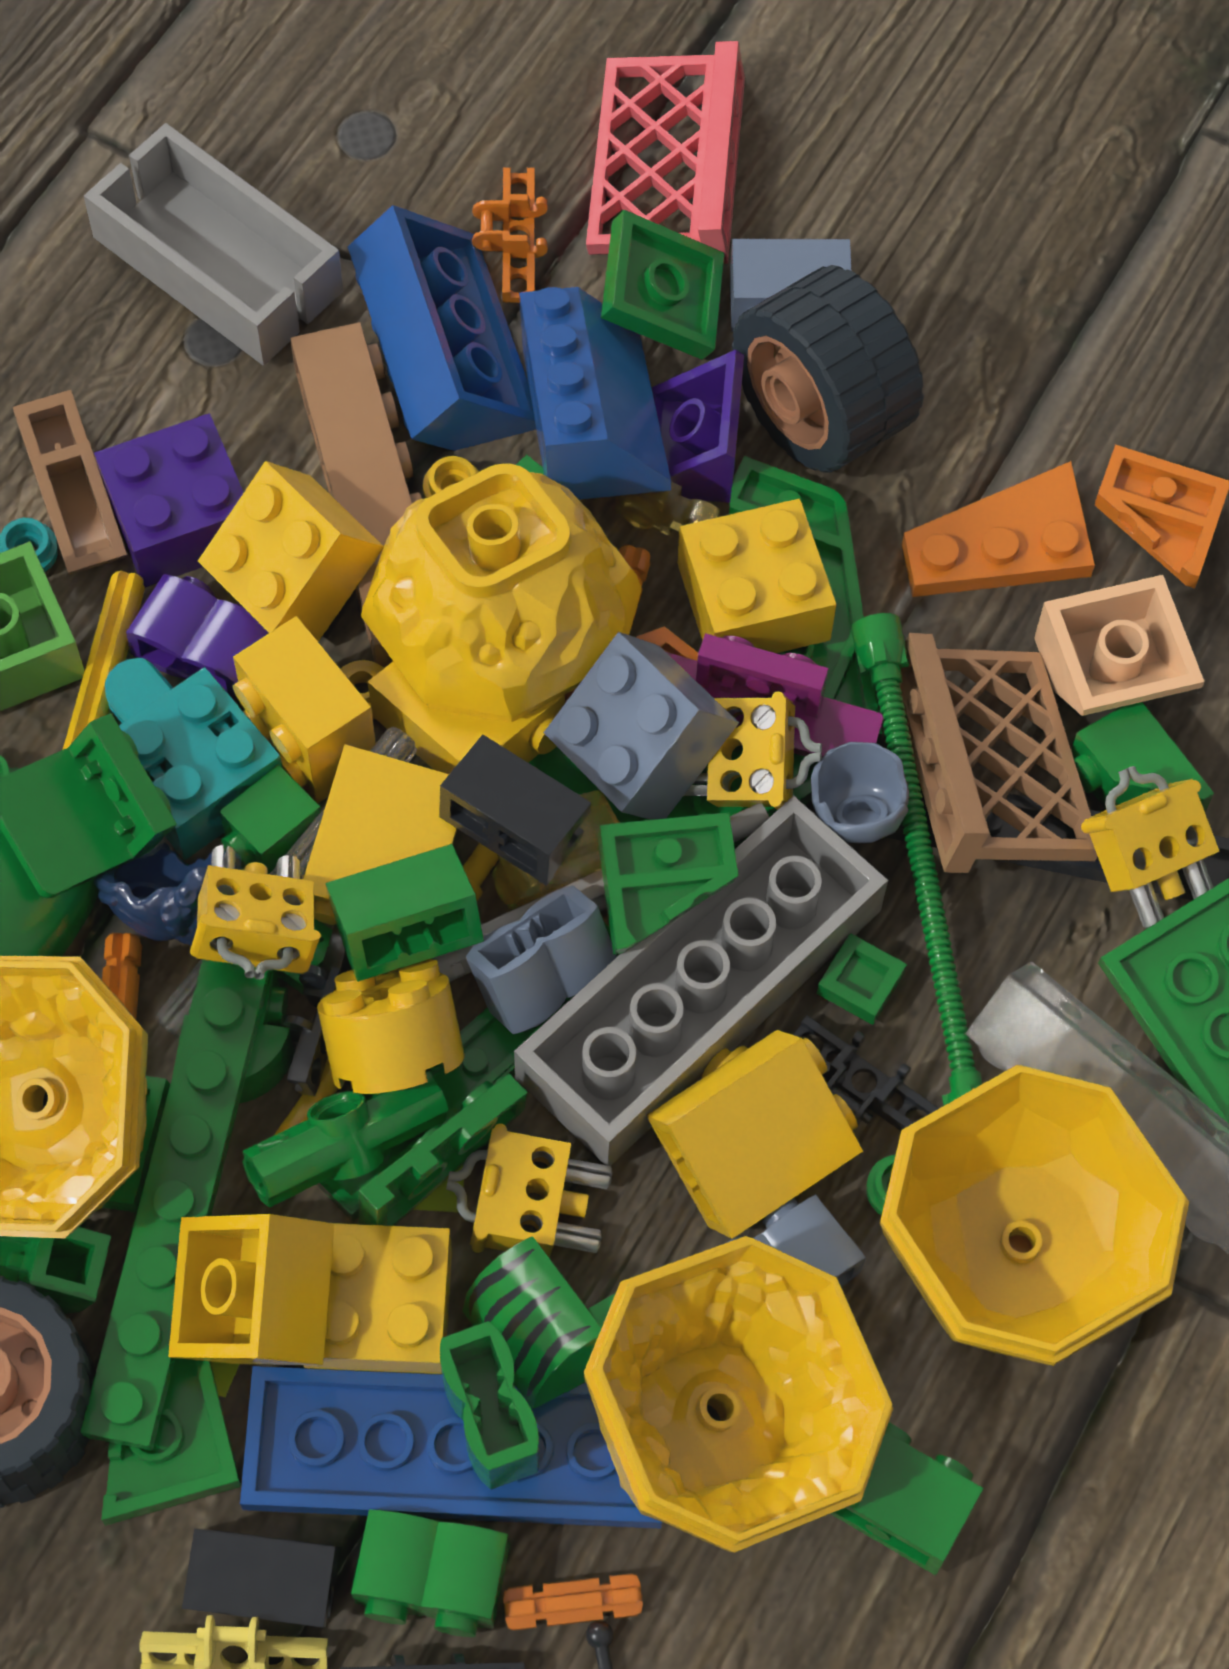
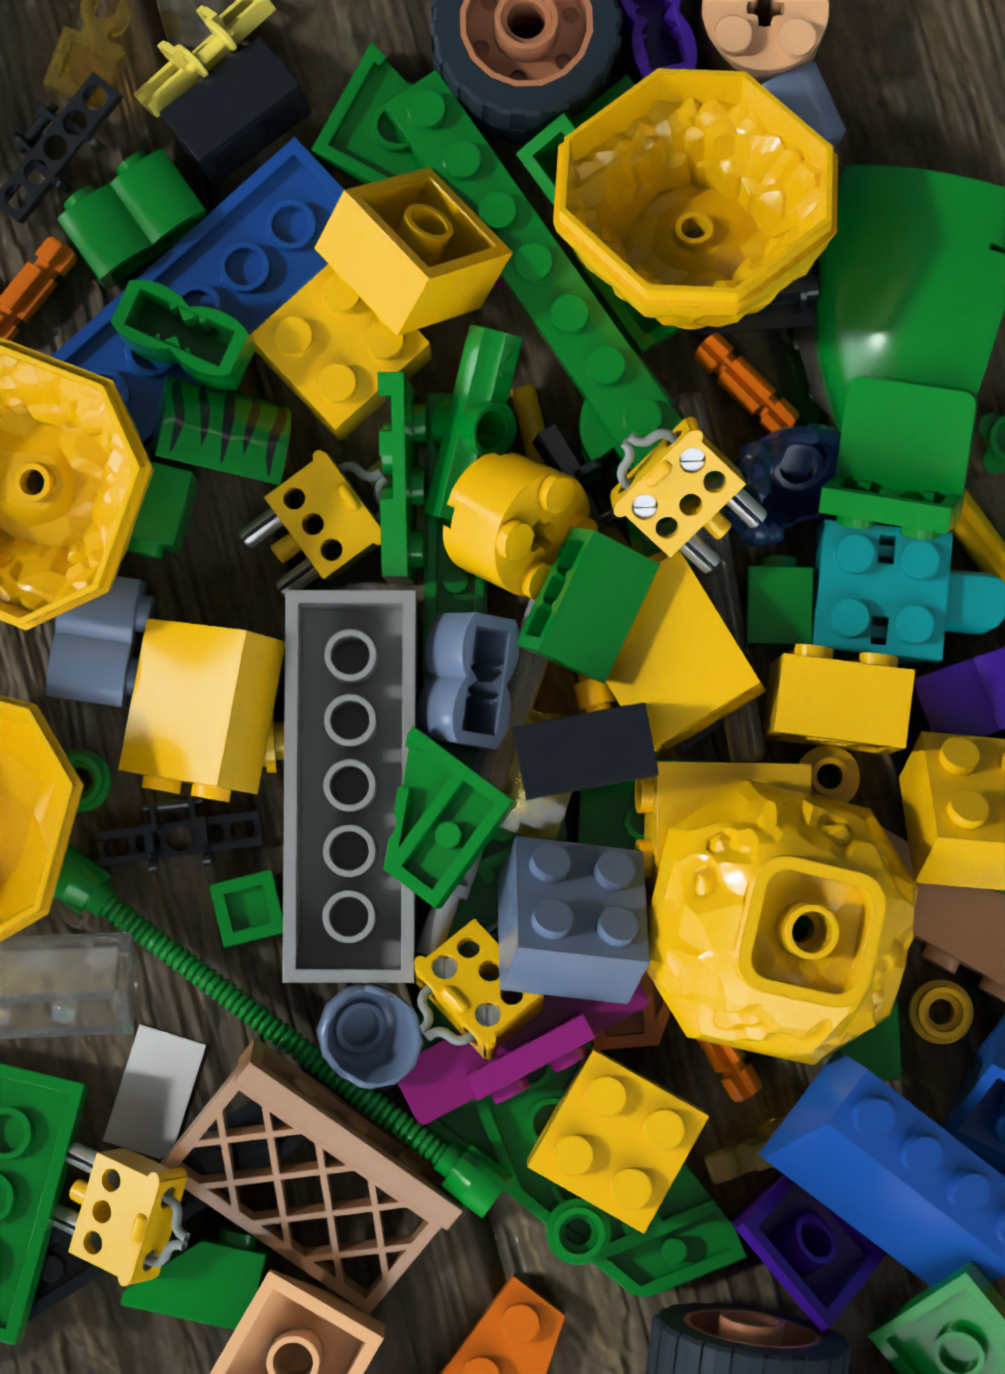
camera: 135 degrees right, 20 degrees up
(847, 546) = (578, 1252): none -> green plate
(1055, 928) = (154, 1092): none -> white sticker

